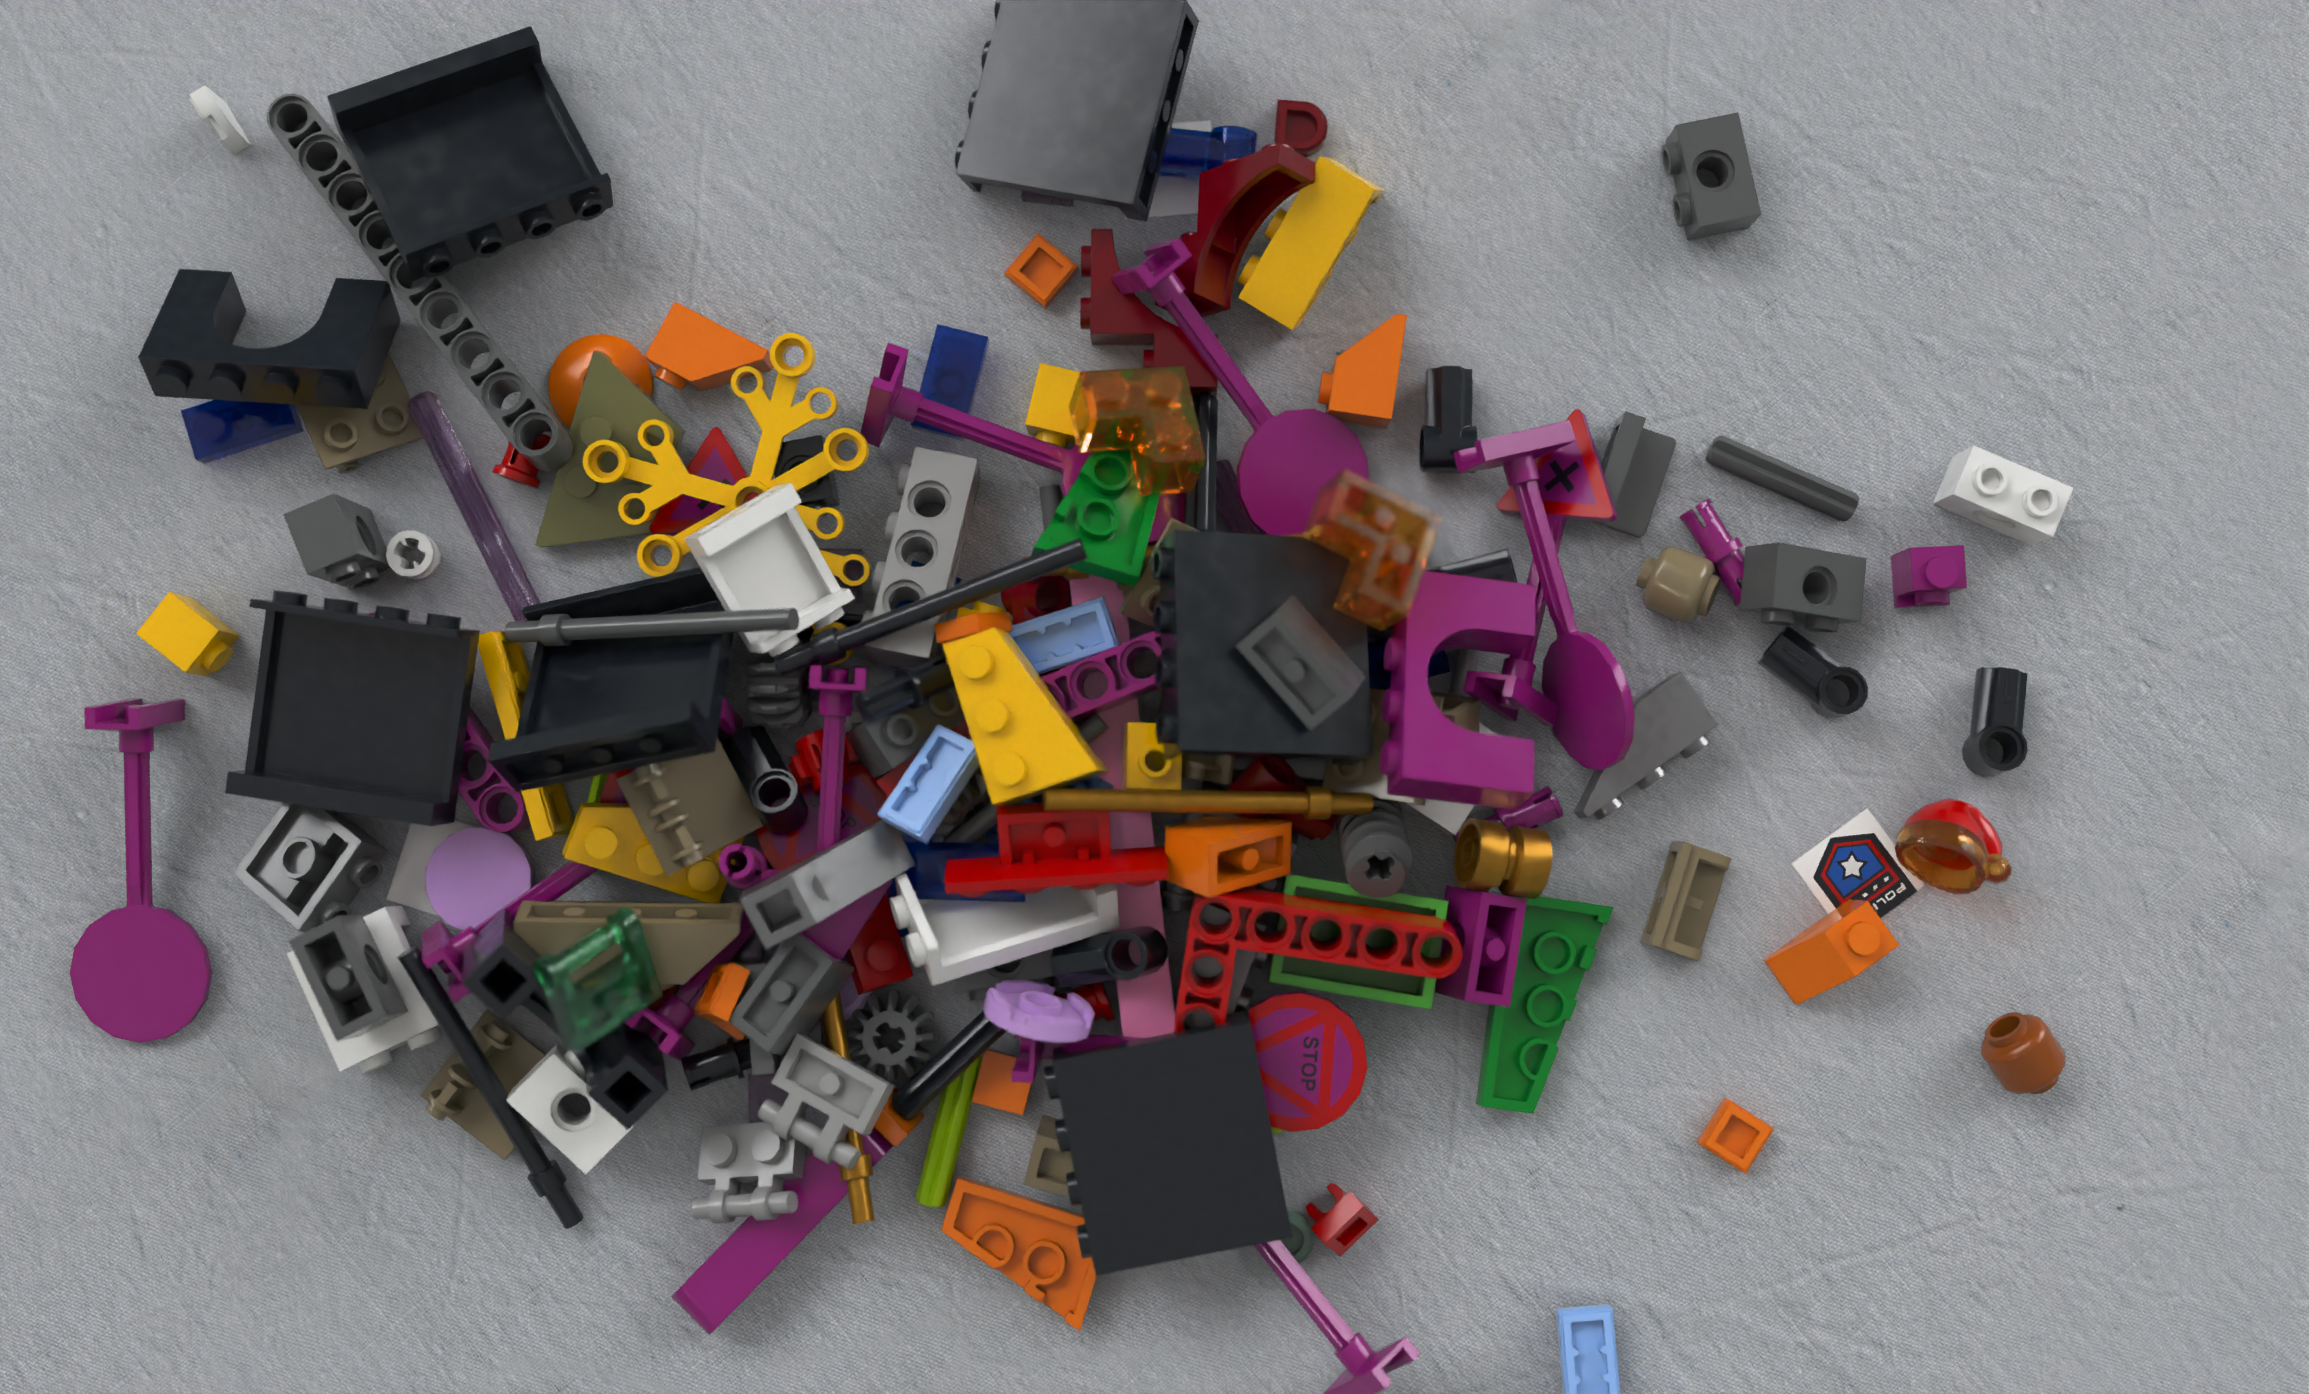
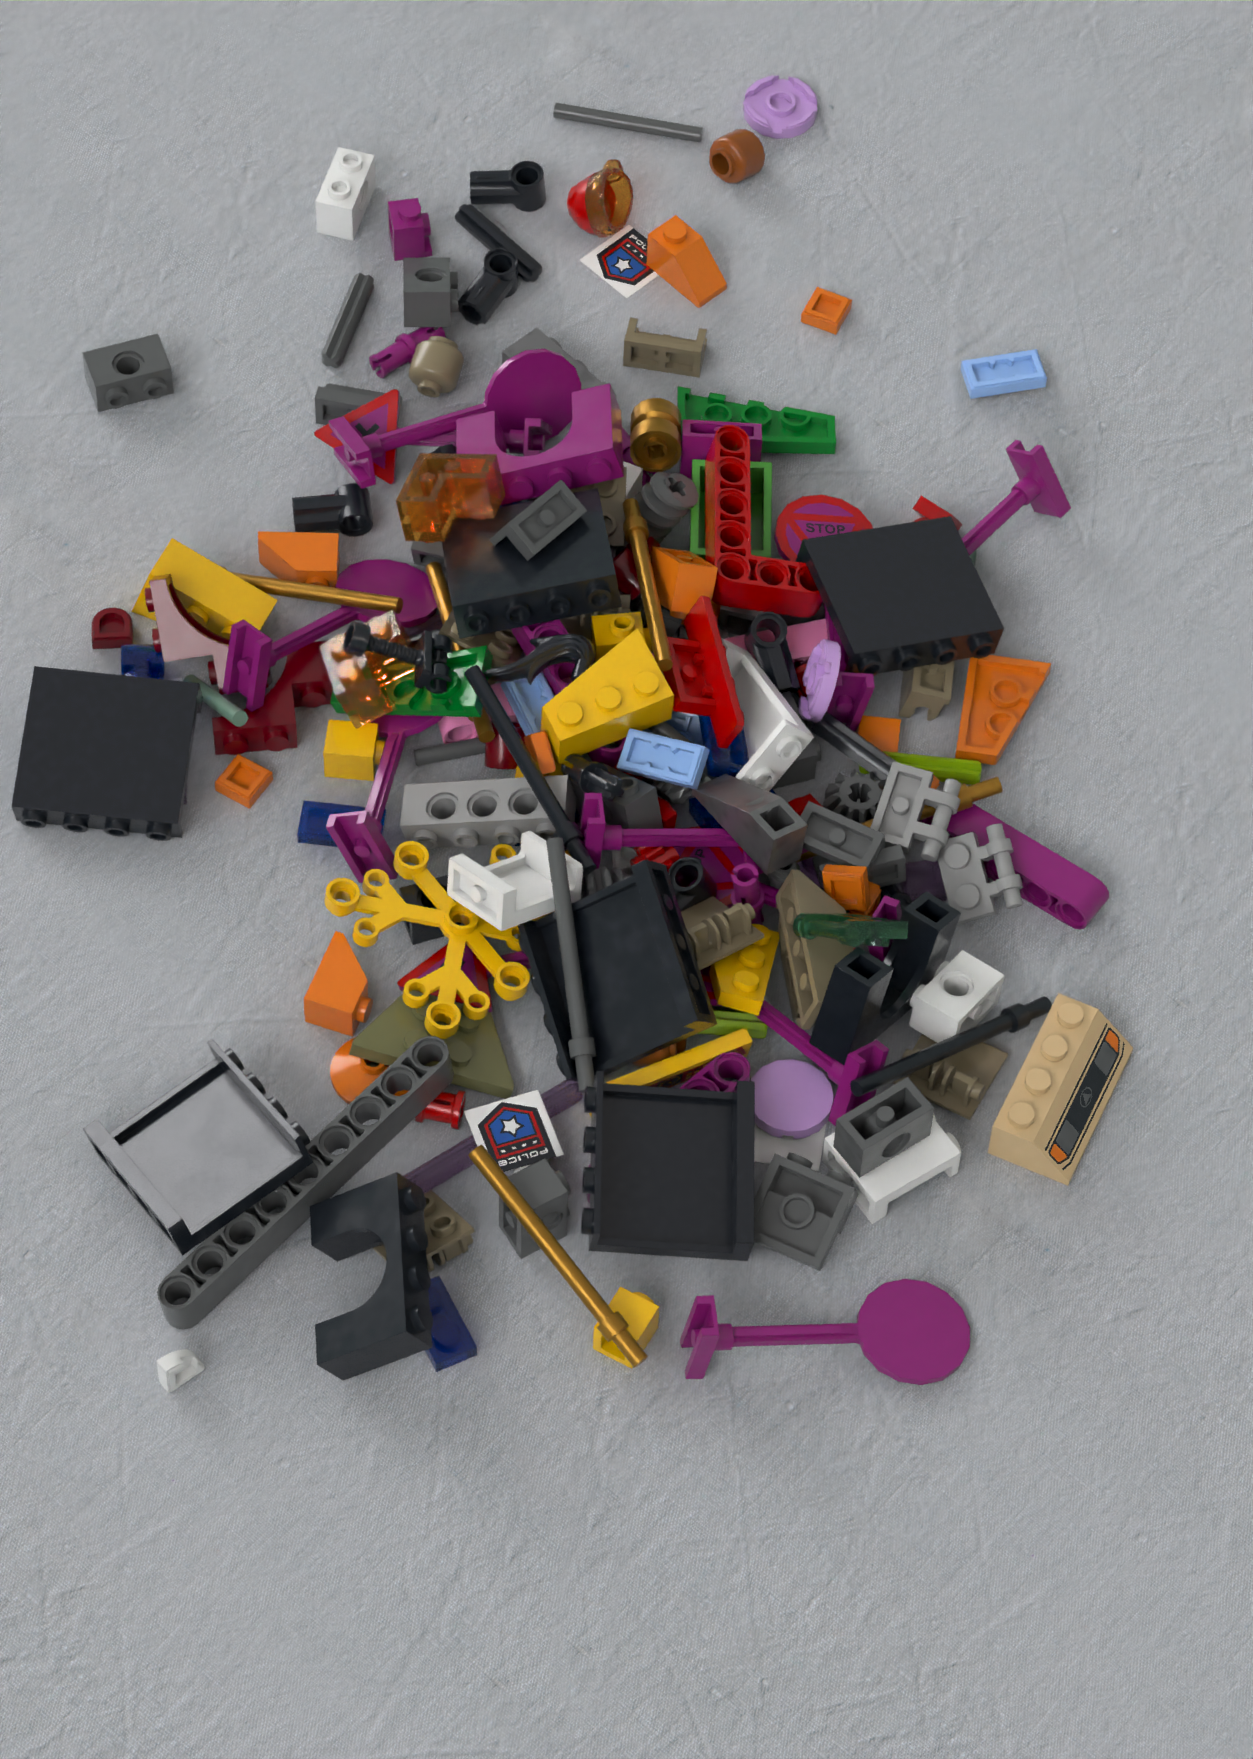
camera: 105 degrees left, 30 degrees down
(155, 607) = (612, 1324): none -> pearl gold bar
(434, 1211) = (1060, 1091): none -> tan slope
(467, 536) = (515, 1131): none -> sticker
(1107, 655) = (548, 652): none -> black piece
(1134, 238) = (219, 703): none -> sand green bar
(1137, 403) = (359, 640): none -> black bar
(1355, 267) = (324, 593): none -> pearl gold bar
(1900, 698) = (493, 237): none -> black axle
(2112, 909) = (627, 122): none -> dark grey bar
(2123, 1132) = (780, 107): none -> lavender tile

